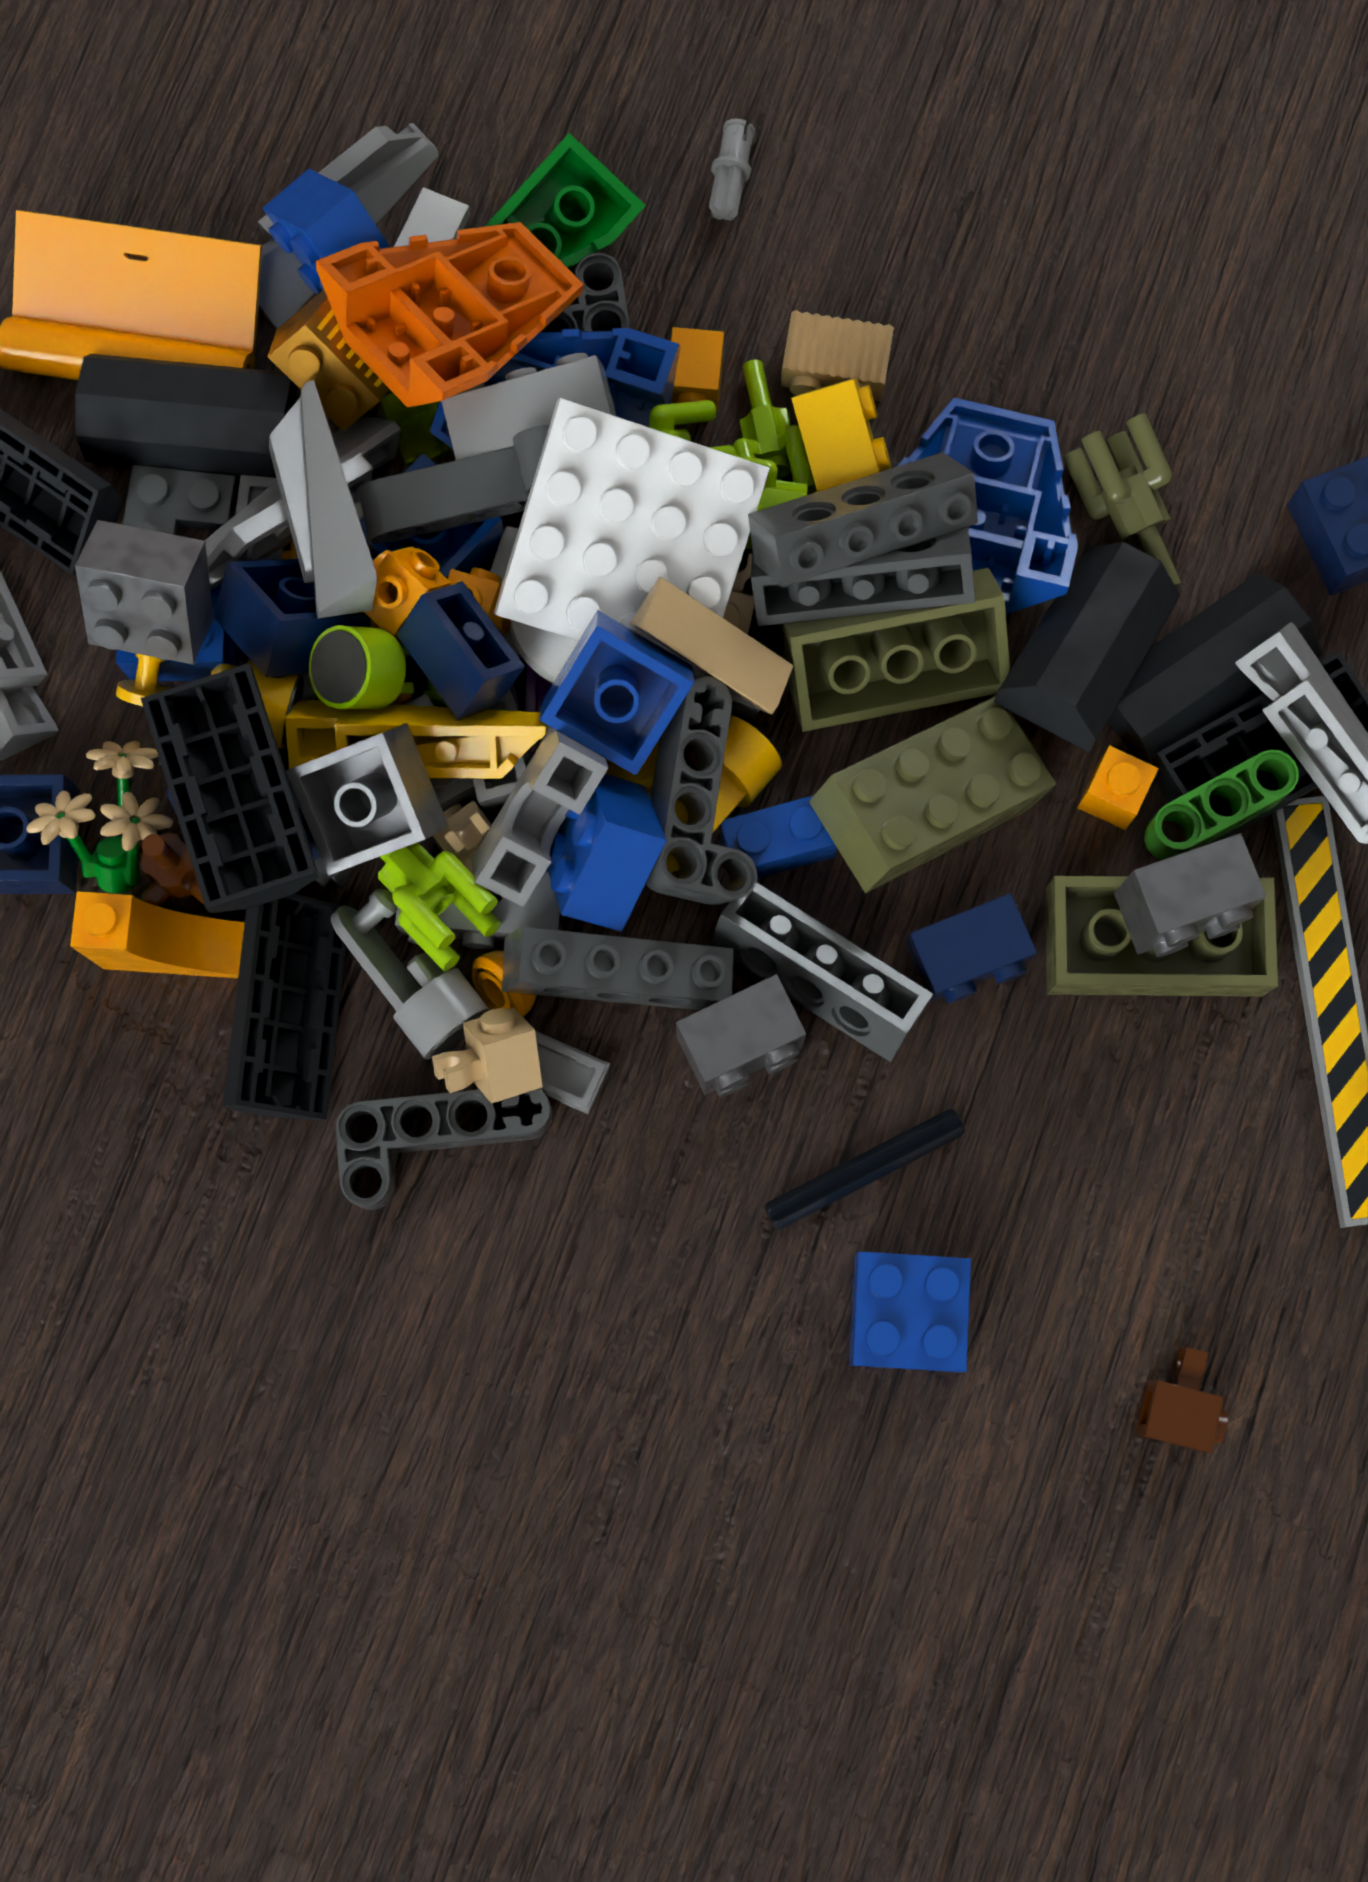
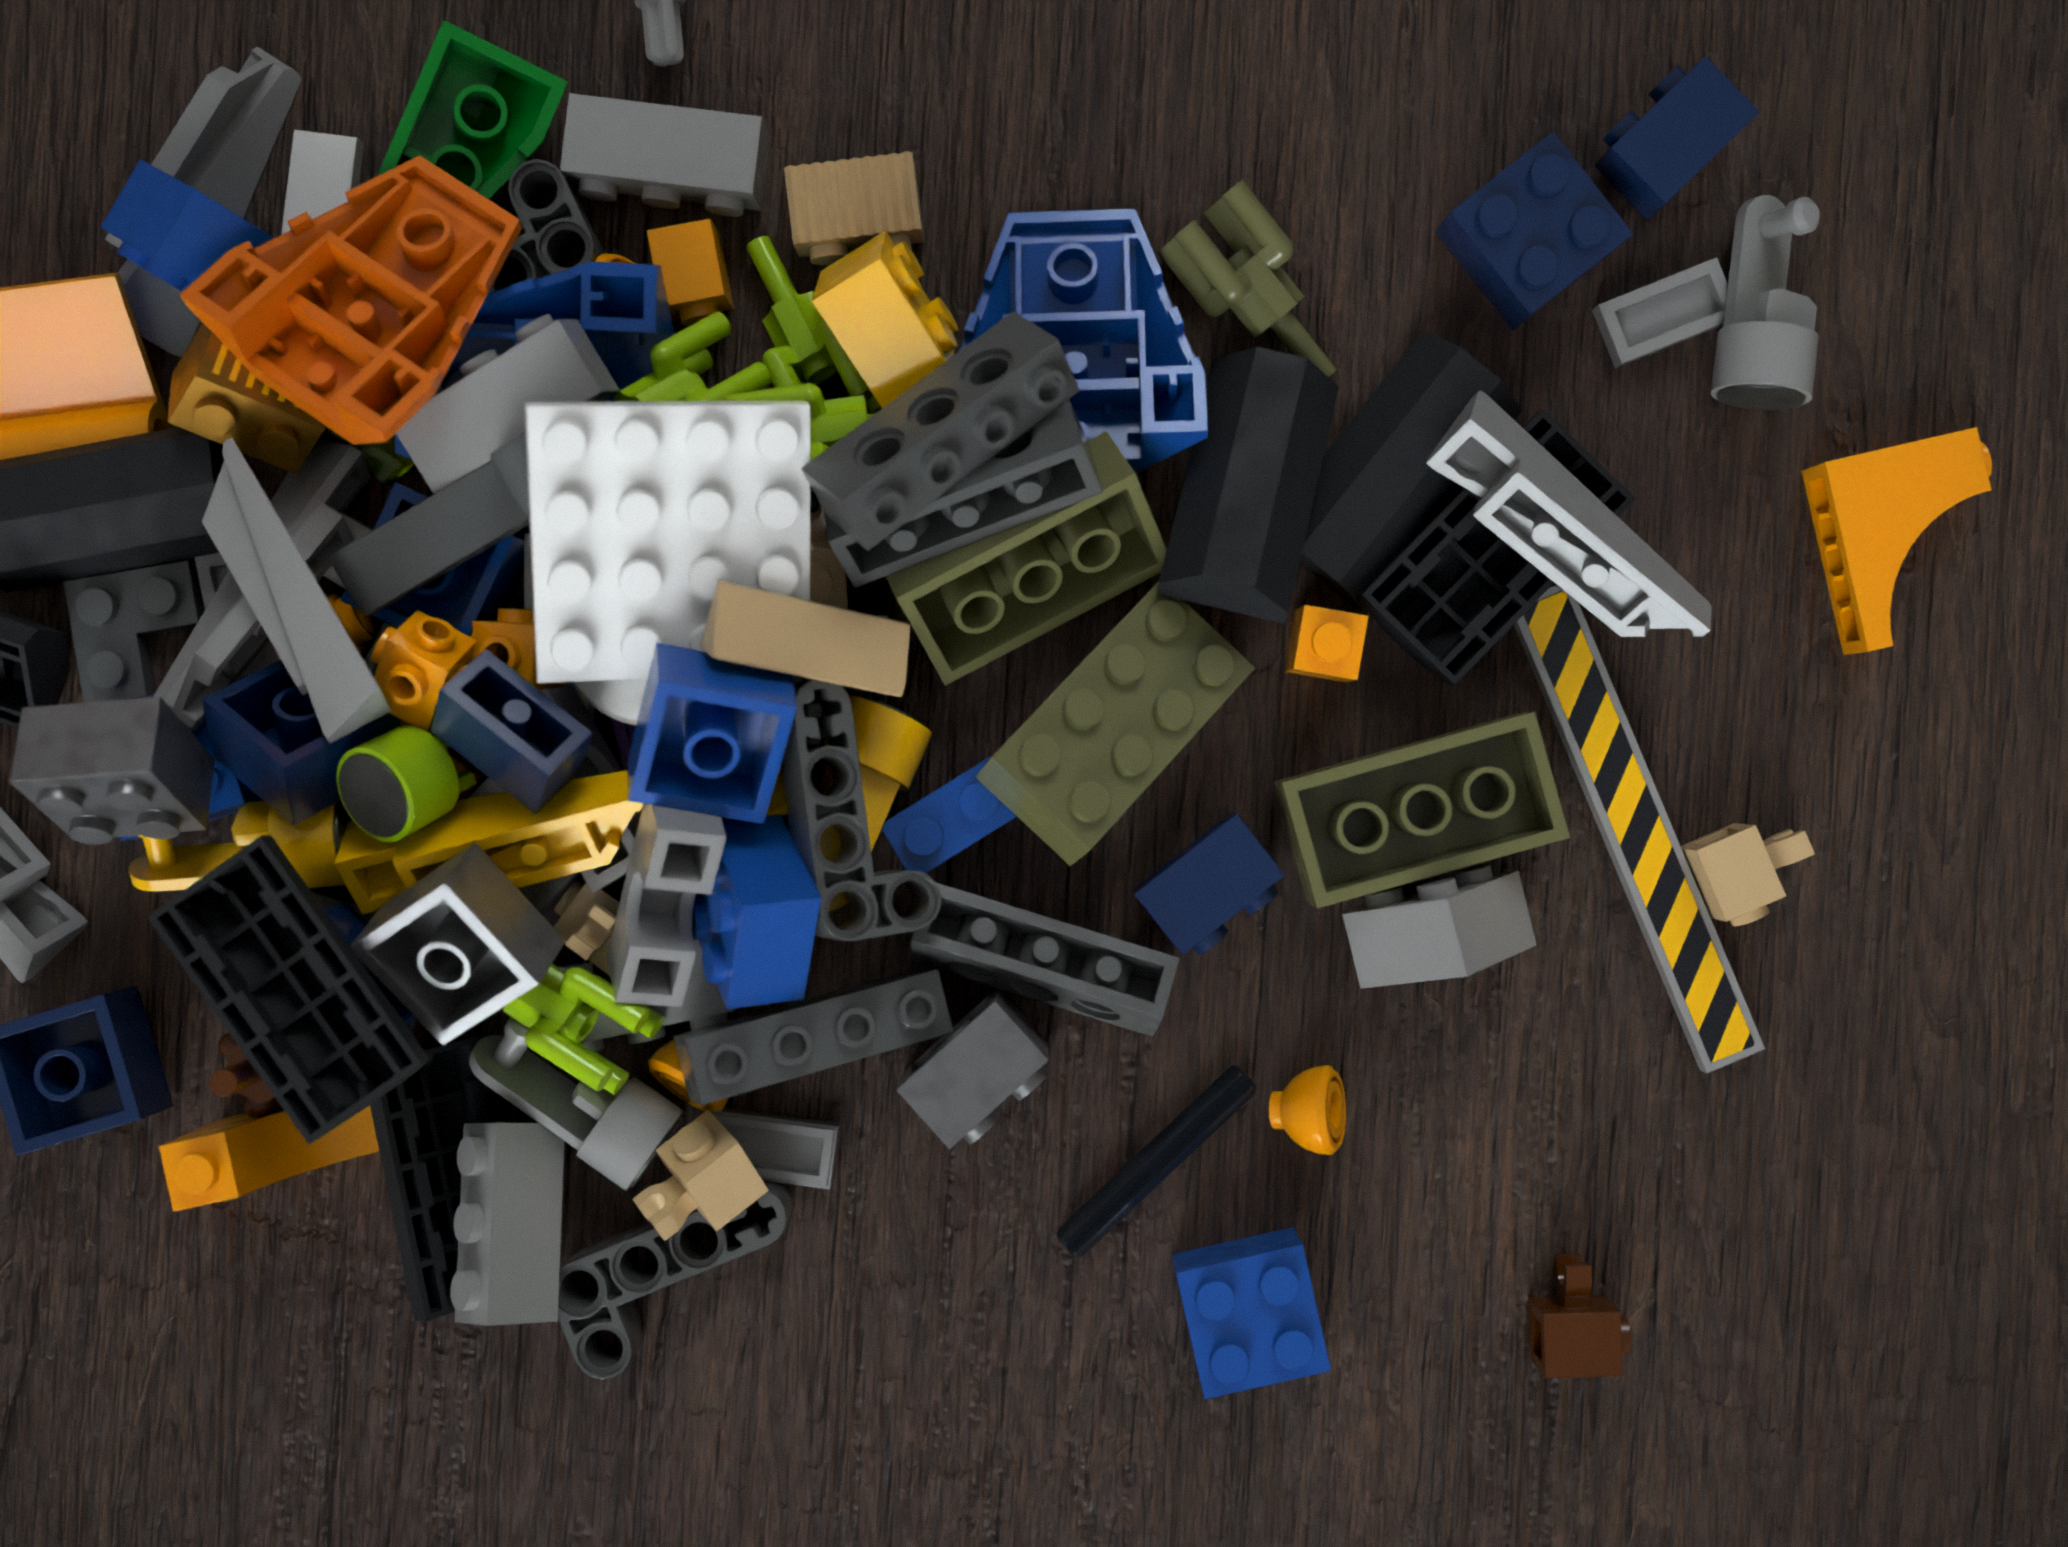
camera: 15 degrees left, 10 degrees up
(115, 857) = (198, 1045): tan plant -> none
(322, 1053) = (508, 1224): none -> light grey brick
(702, 280) = (665, 154): none -> light grey brick
(1006, 1160) = (1312, 1110): none -> light orange brick
(1152, 1035) = (1441, 931): none -> light grey brick
(1190, 894) = (1449, 780): flat silver brick -> none
(1238, 787) = (1483, 635): bright green beam -> none

